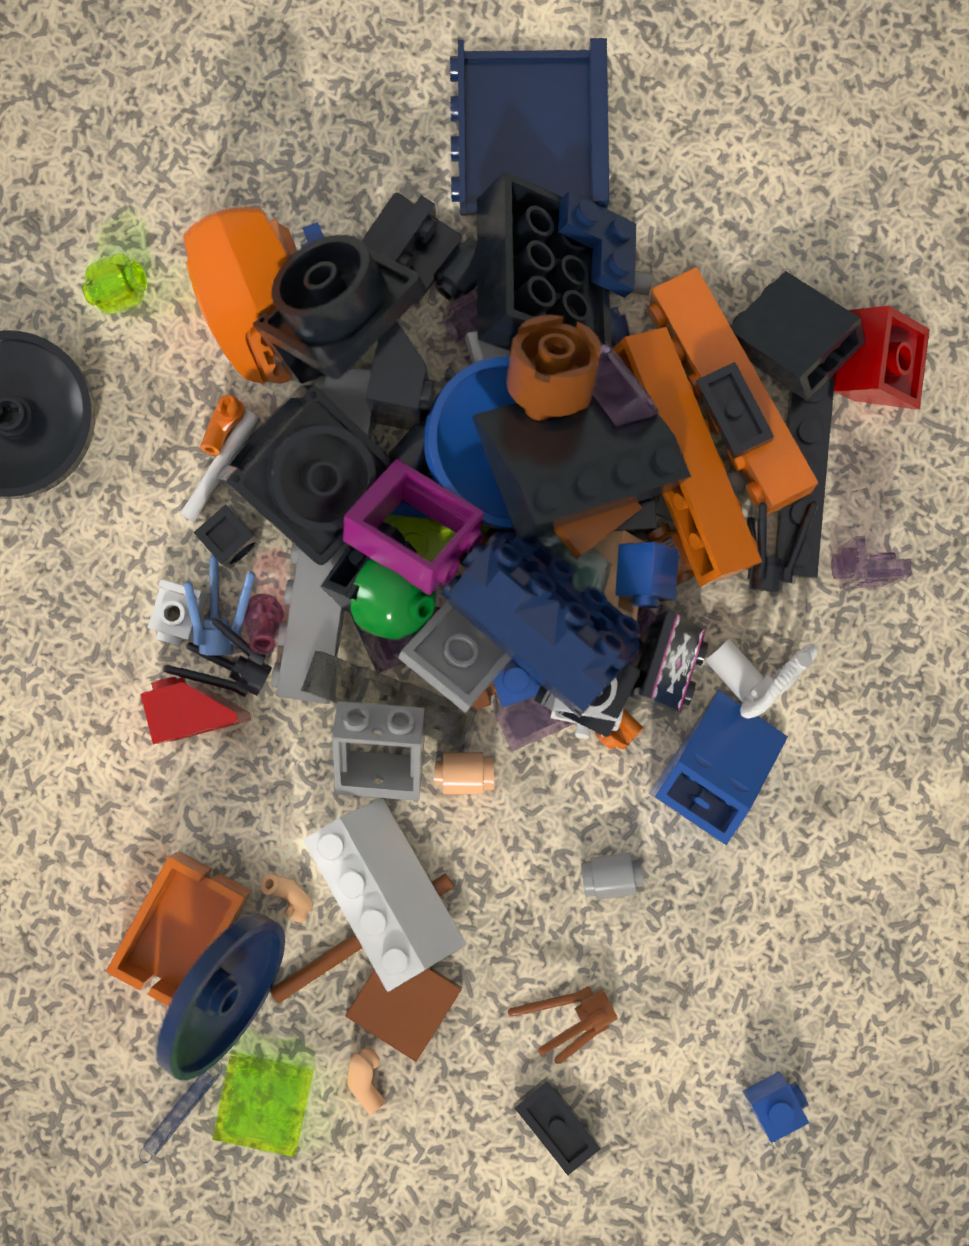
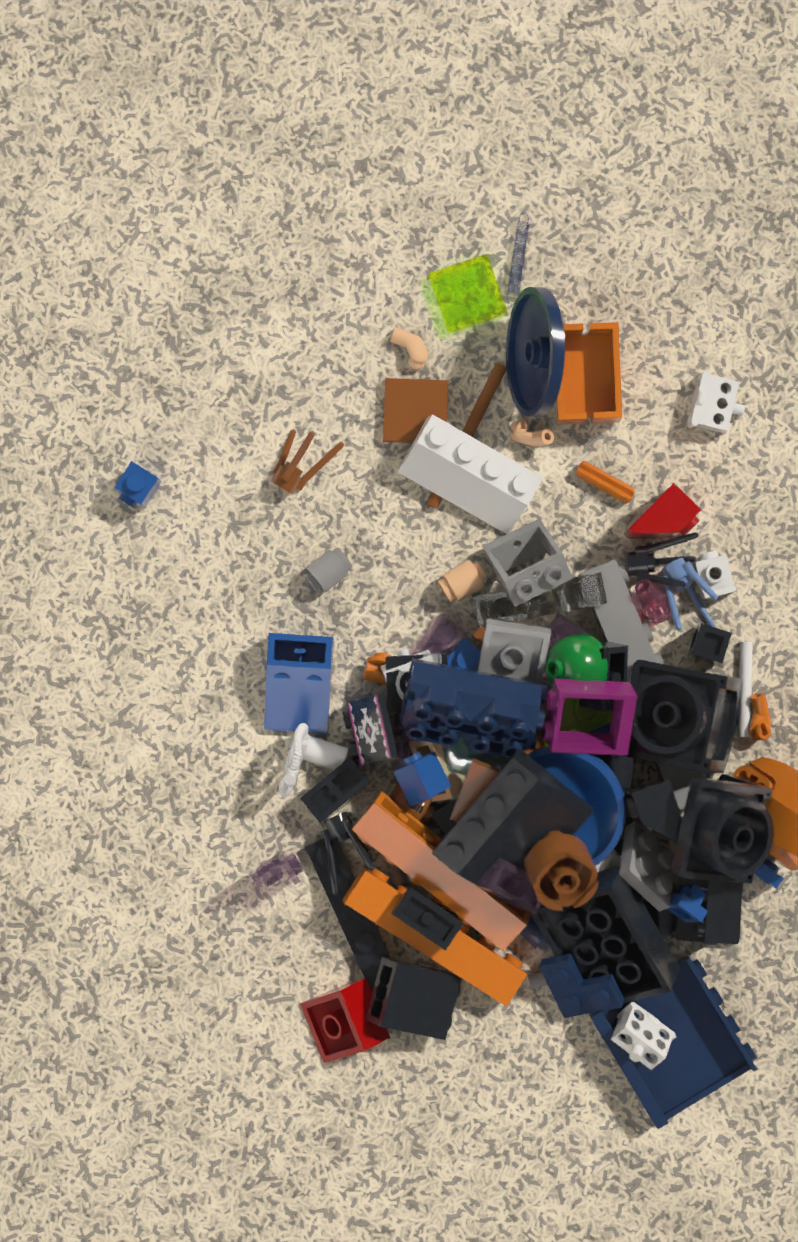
camera: 155 degrees right, 0 degrees up
(68, 813) = (705, 400): none -> white piece
(236, 791) = (605, 482): none -> orange axle
(428, 258) = (688, 904): none -> blue tile
(448, 325) = (647, 866): none -> light grey plate
(557, 1126) = (270, 390): black plate -> none
(563, 147) = (642, 1036): none -> white piece
(748, 619) = (335, 790): none -> black hinge

